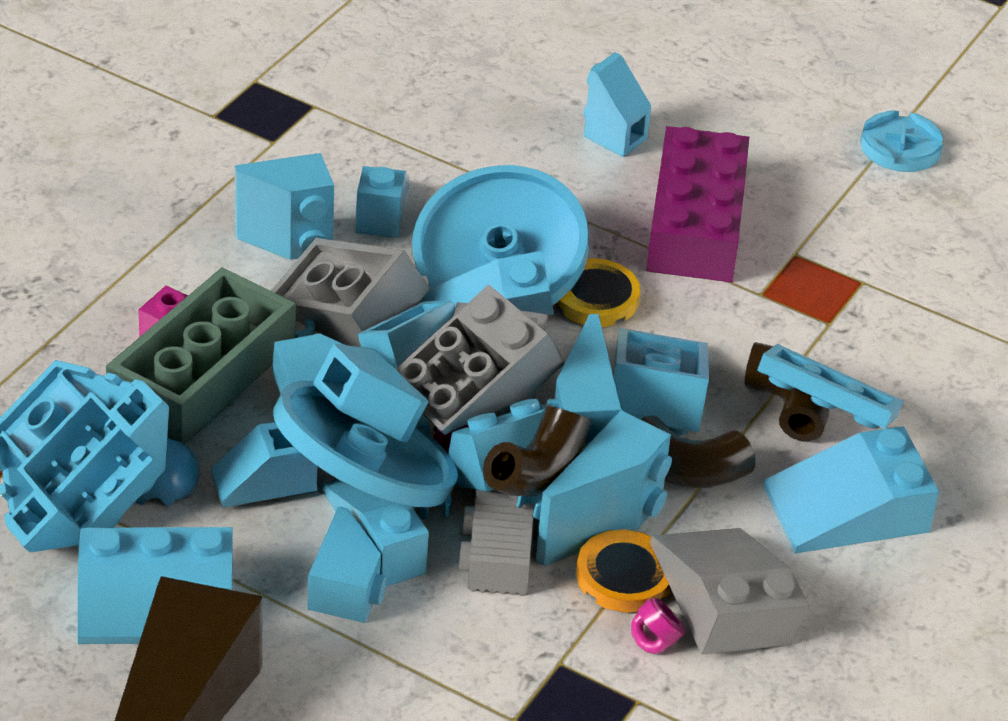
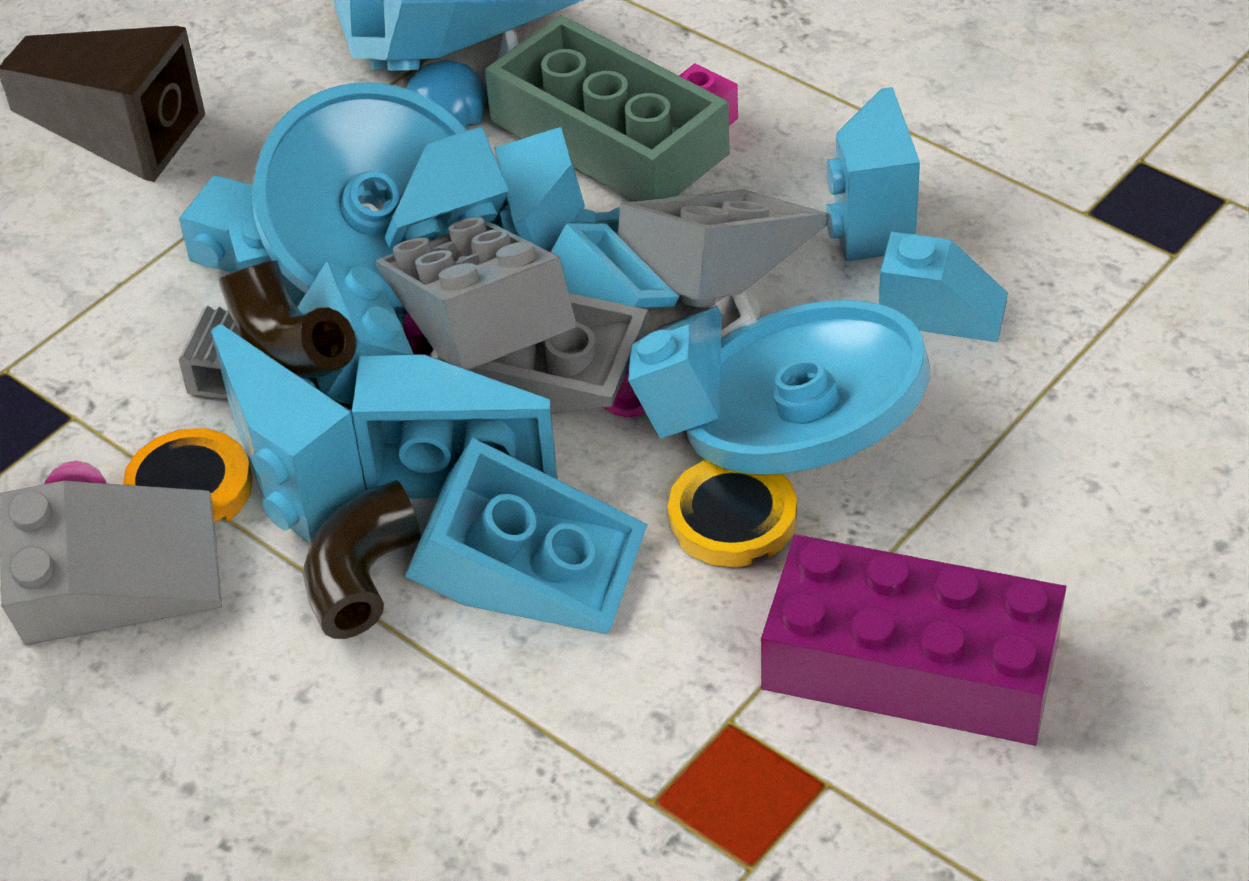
camera: 105 degrees right, 5 degrees up
(124, 567) = (260, 80): medium azure slope -> none
(615, 107) = (1140, 545): medium azure slope -> none
(800, 415) = (474, 703): dark brown cylinder -> none
(830, 387) = (389, 686): medium azure plate -> none
(855, 493) = (243, 750): medium azure slope -> none

